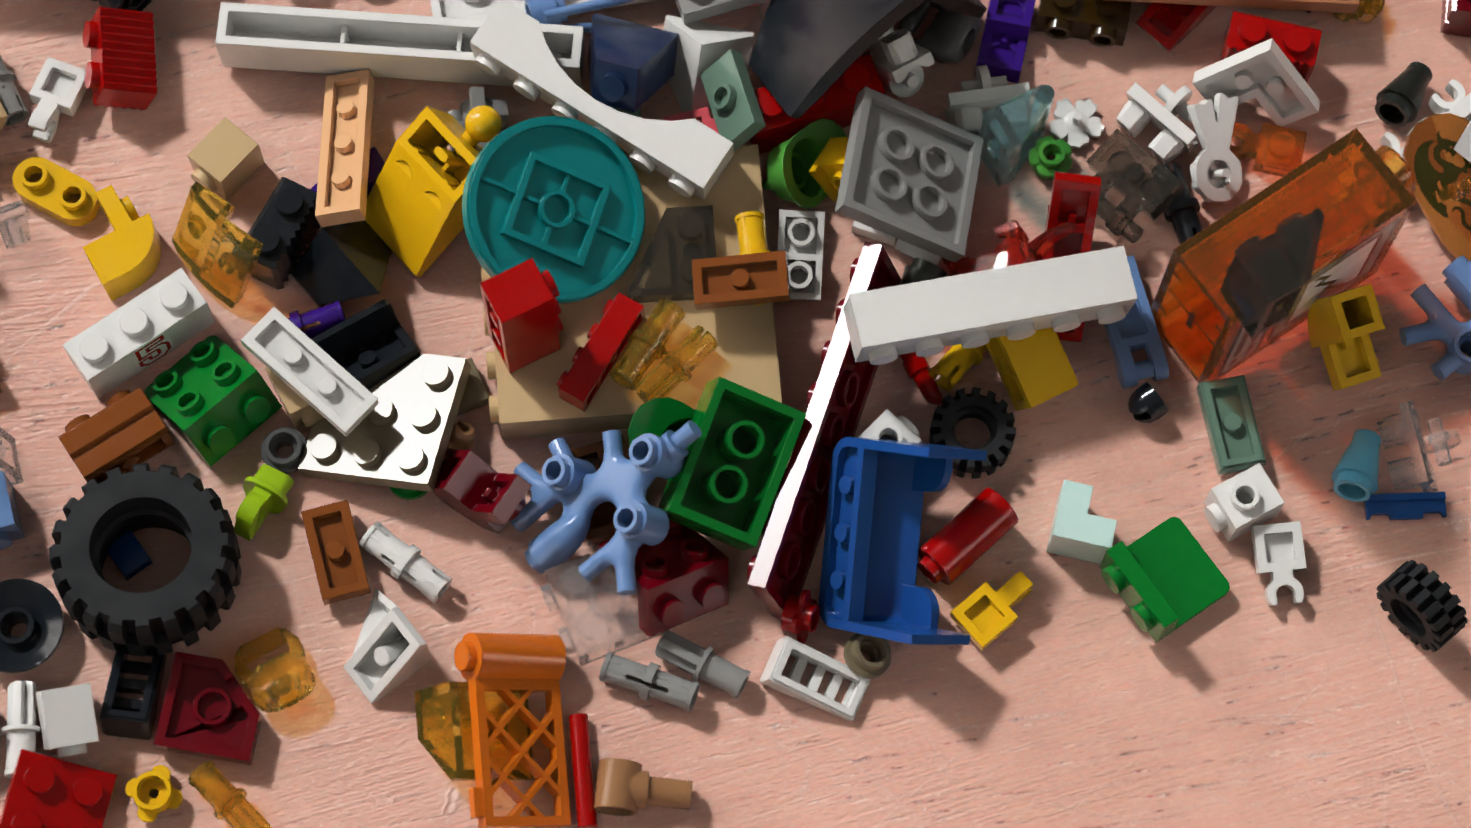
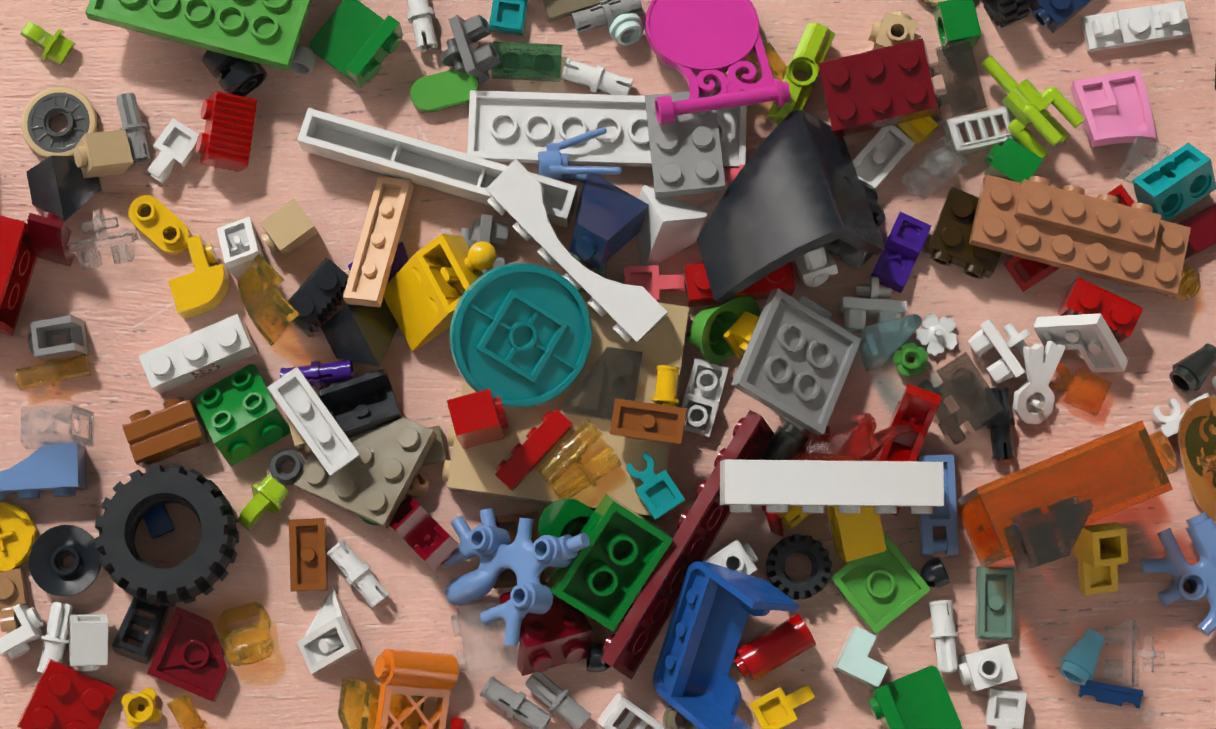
camera: 15 degrees right, 10 degrees up
(164, 194) = (239, 245): none -> white slope
(732, 98) = (677, 269): sand green plate -> none
(741, 601) = (593, 662): none -> black hinge
(770, 367) = (657, 491): none -> teal plate
(800, 615) = (637, 680): red plate -> none
(1081, 432) = (880, 586): none -> bright green plate
(1177, 476) = (944, 635): none -> white axle

